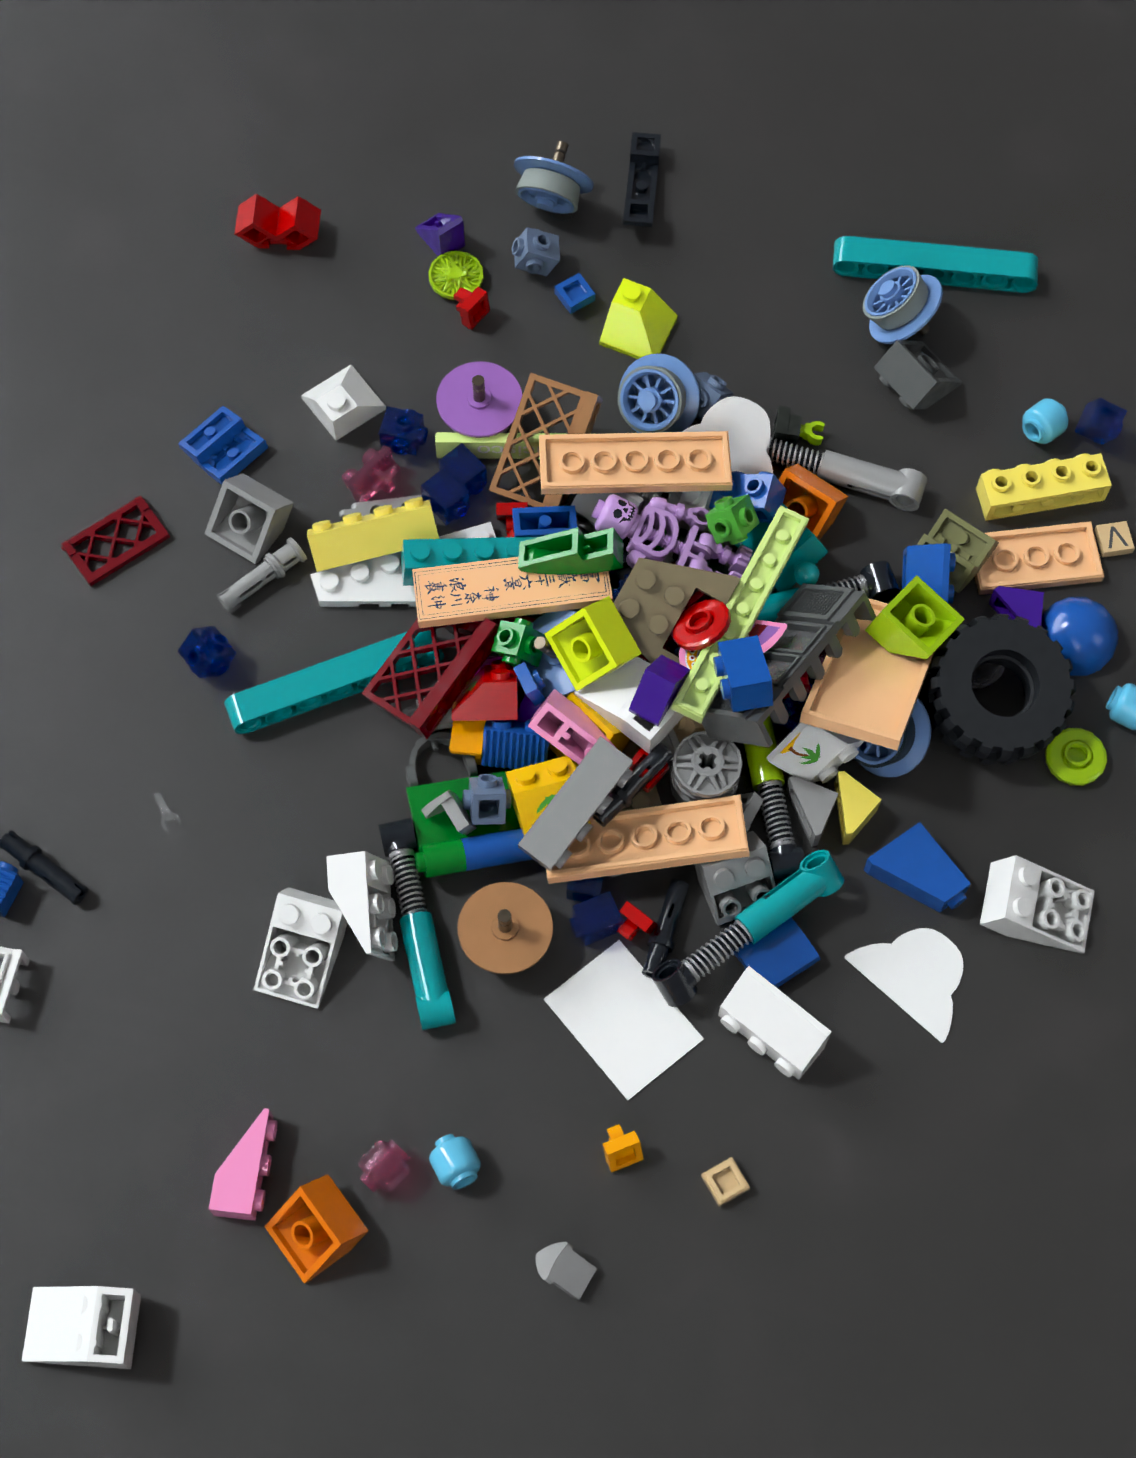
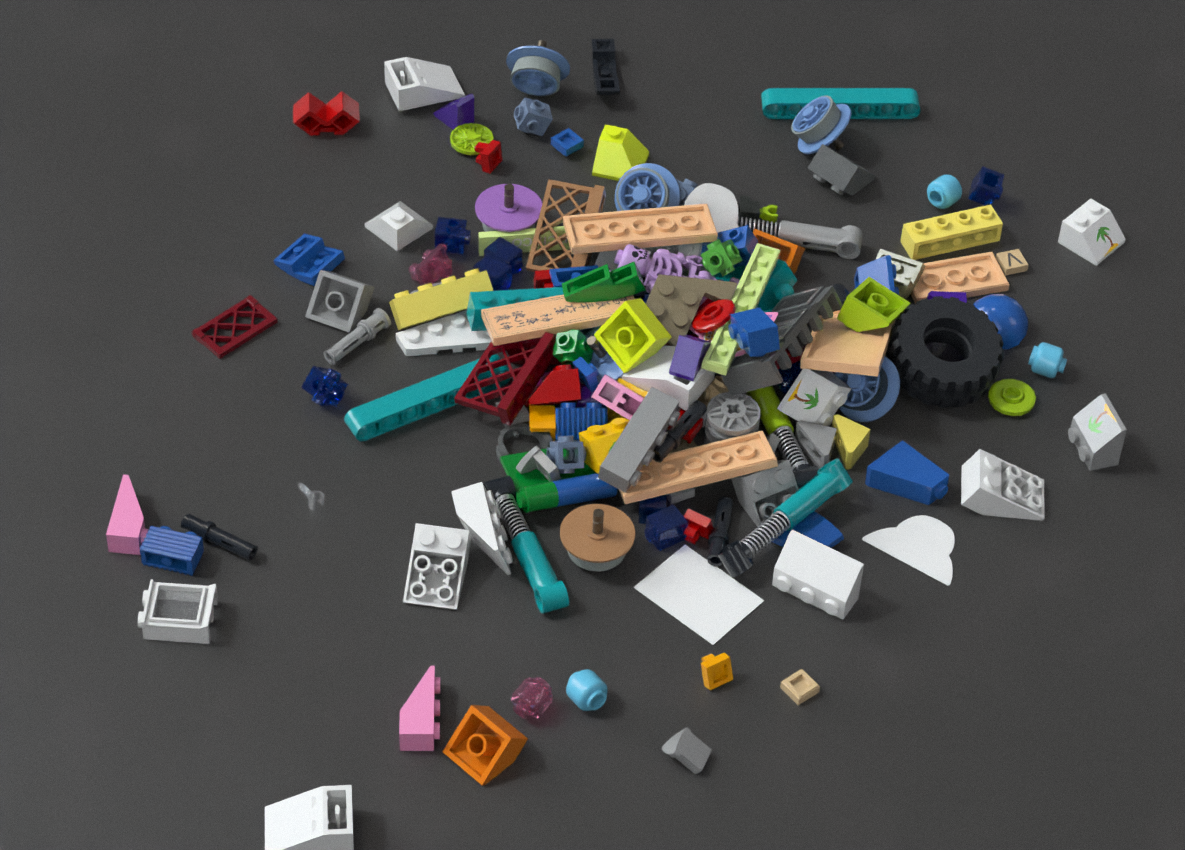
camera: 10 degrees left, 20 degrees down
(406, 183) = (420, 83): none -> white slope

